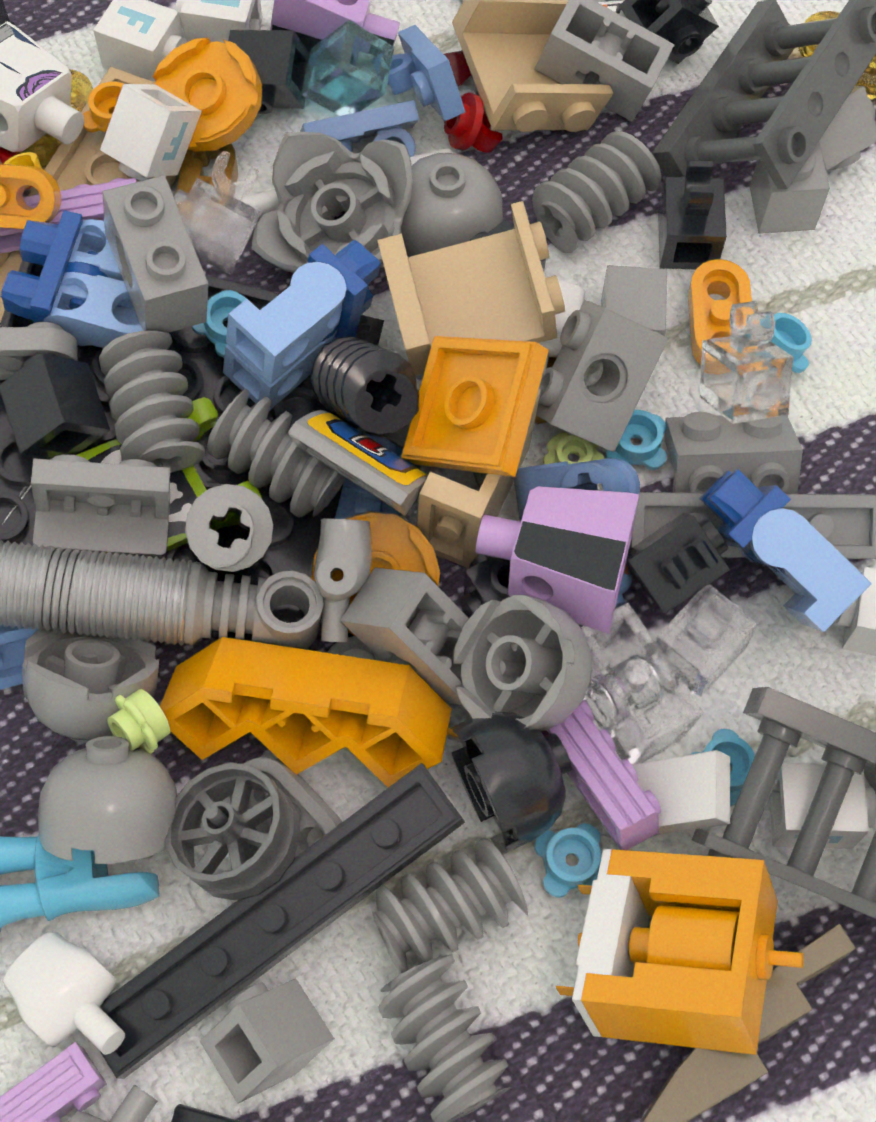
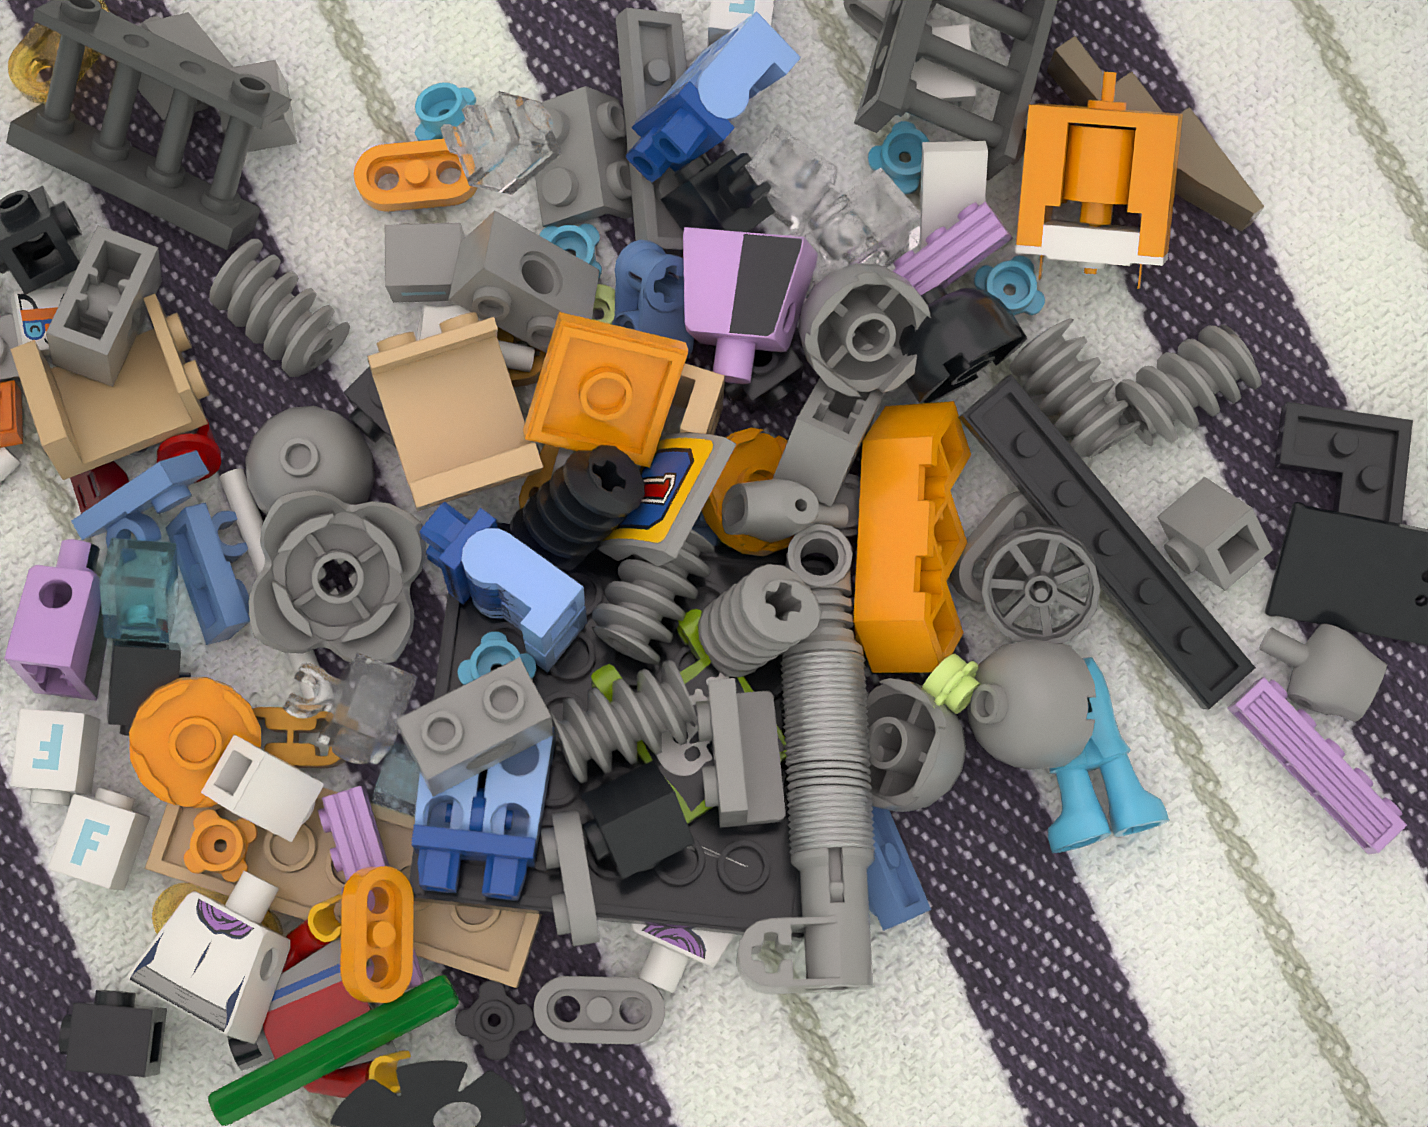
camera: 95 degrees left, 15 degrees up
(61, 991) = (1190, 725): white piece -> none
(691, 218) = (304, 207): black brick -> none

